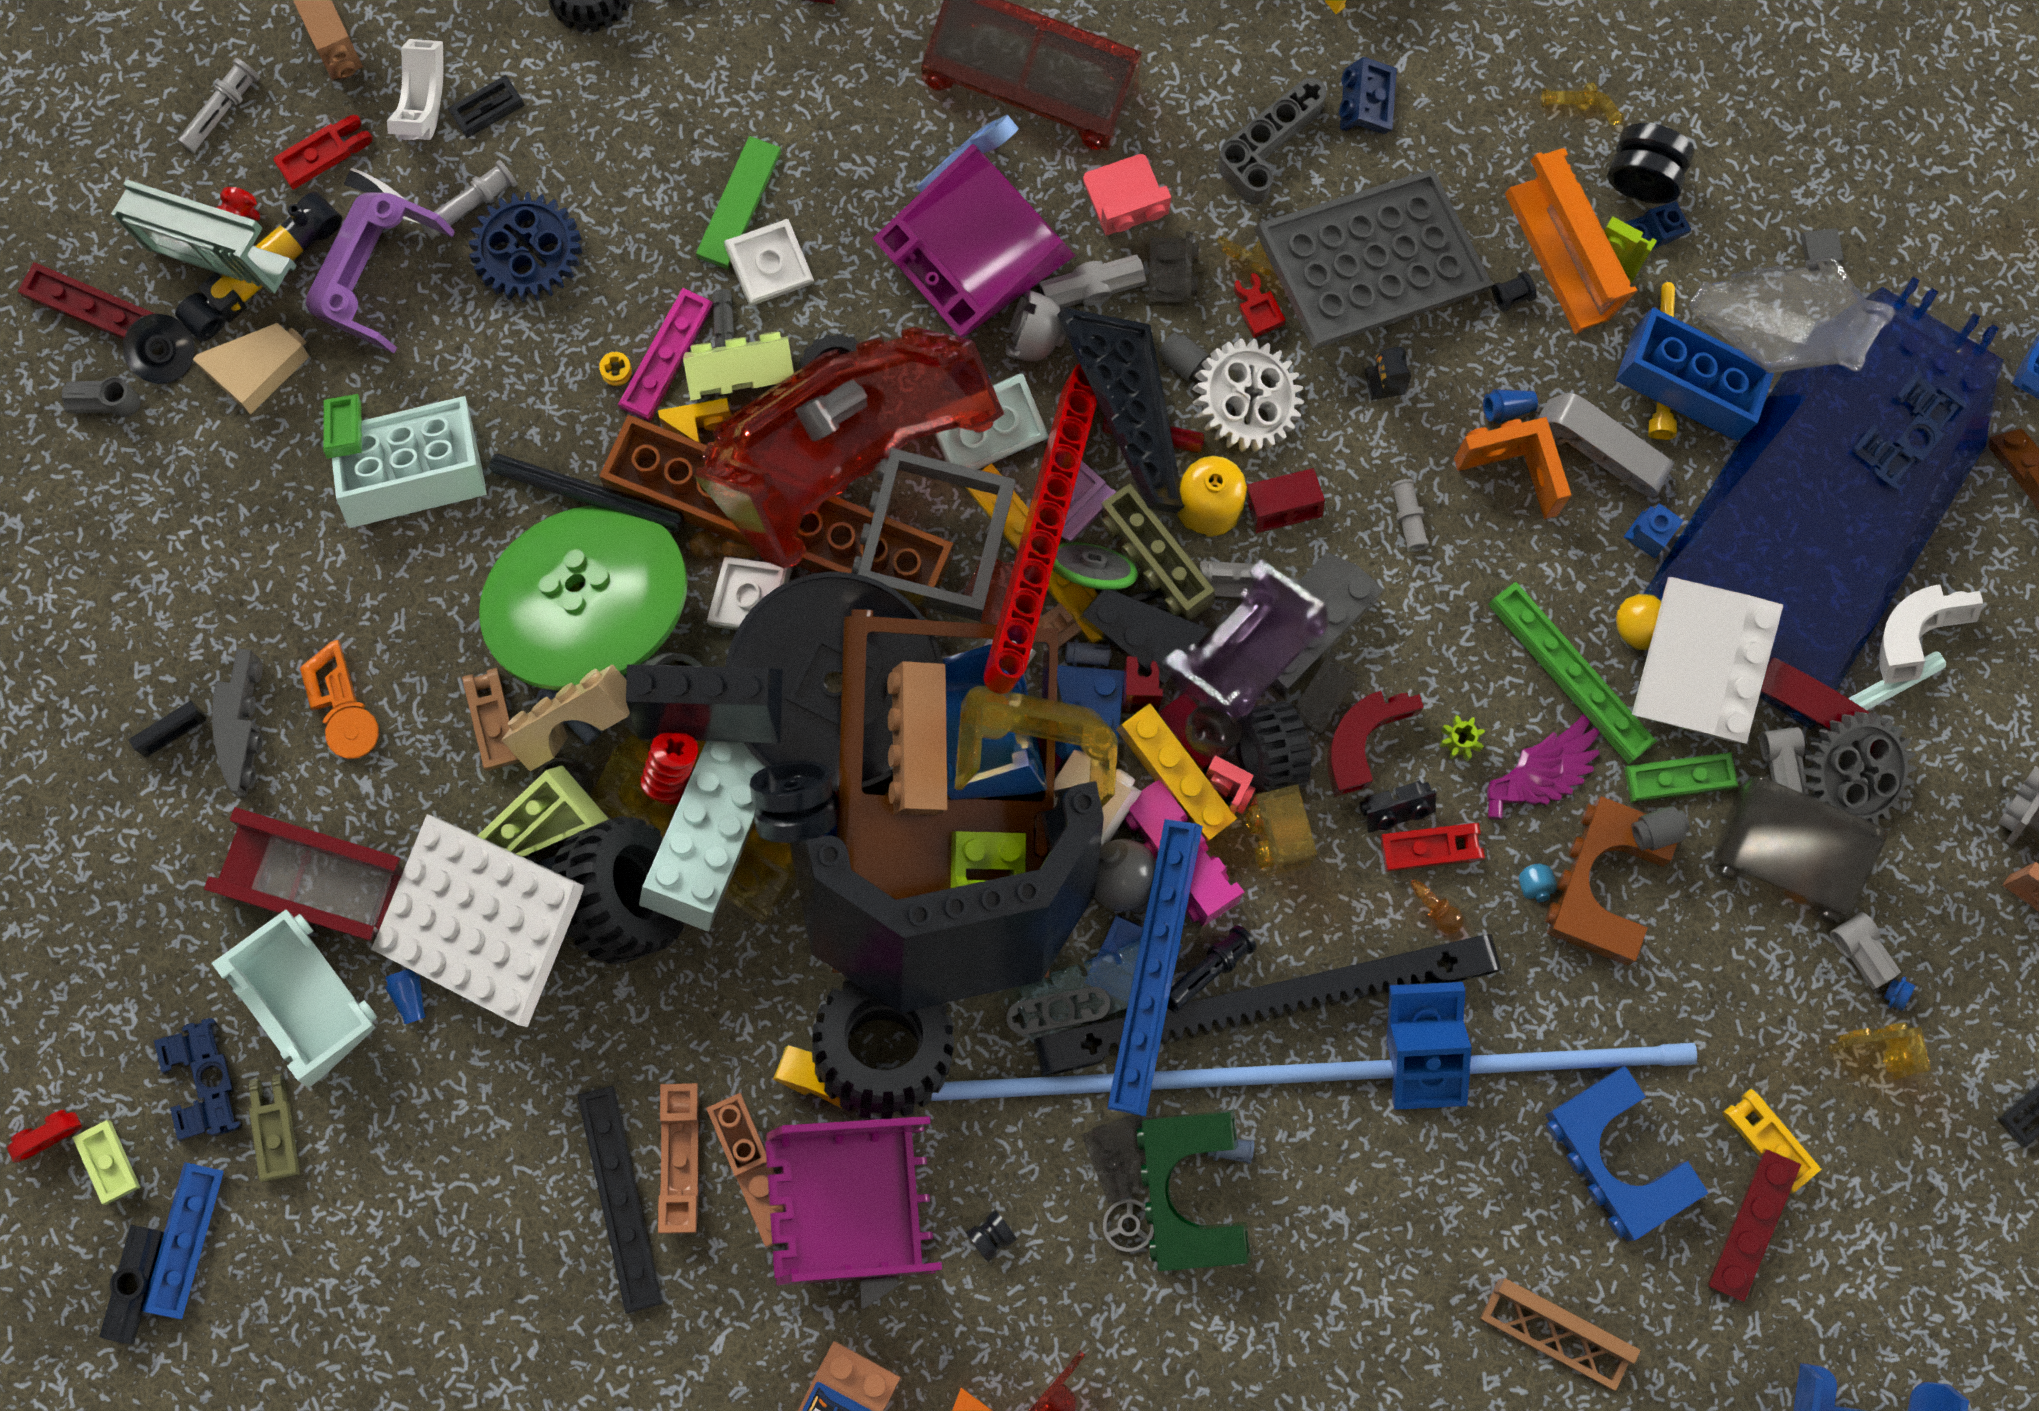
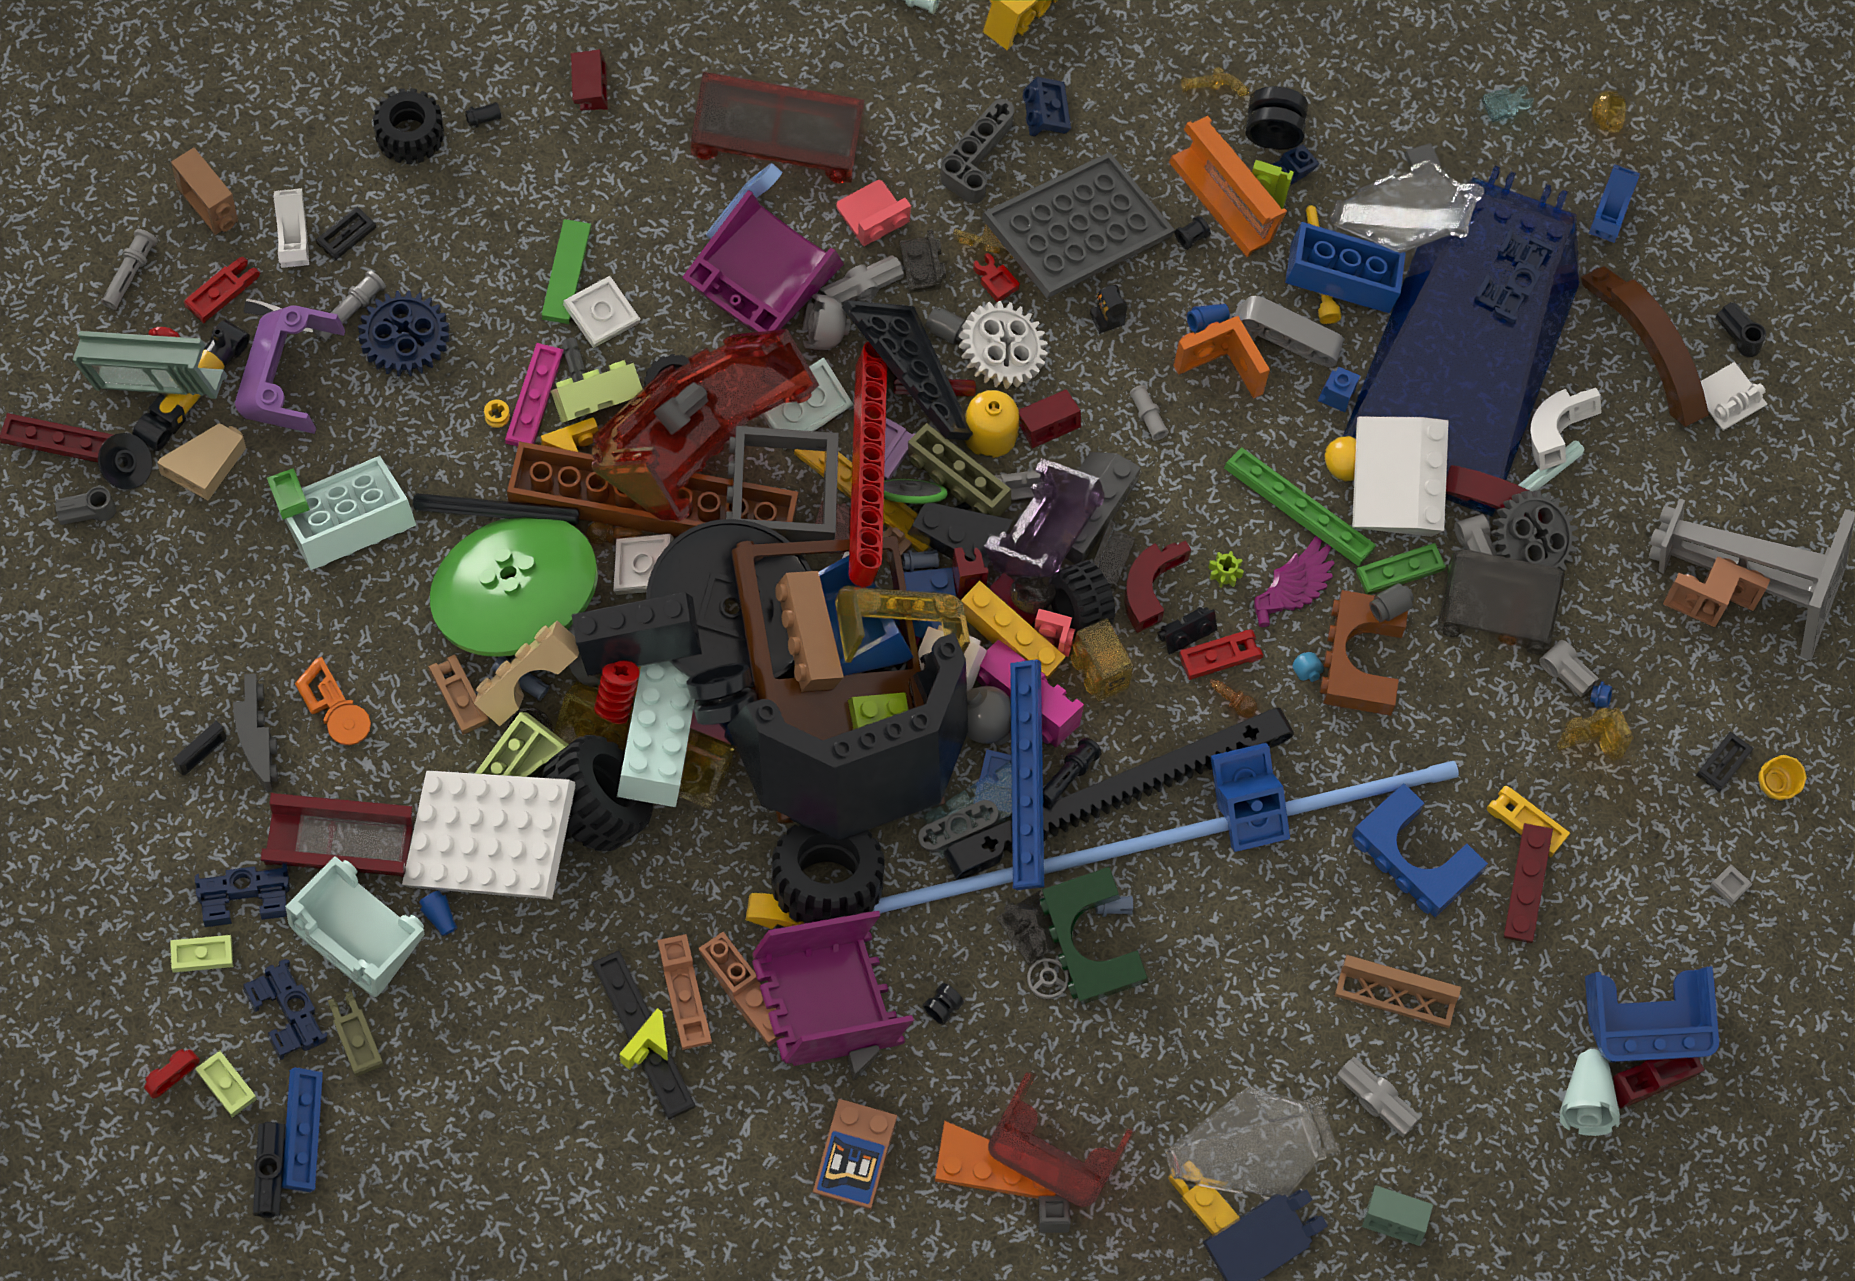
camera: 15 degrees left, 10 degrees down
(114, 990) = (201, 953): none -> yellowish green plate
(211, 913) = (216, 888): none -> dark blue piece
(626, 1207) = (650, 1035): none -> neon yellow slope
(1940, 194) = (1503, 104): none -> clear light blue plate
(2011, 1274) = (1731, 884): none -> light grey tile

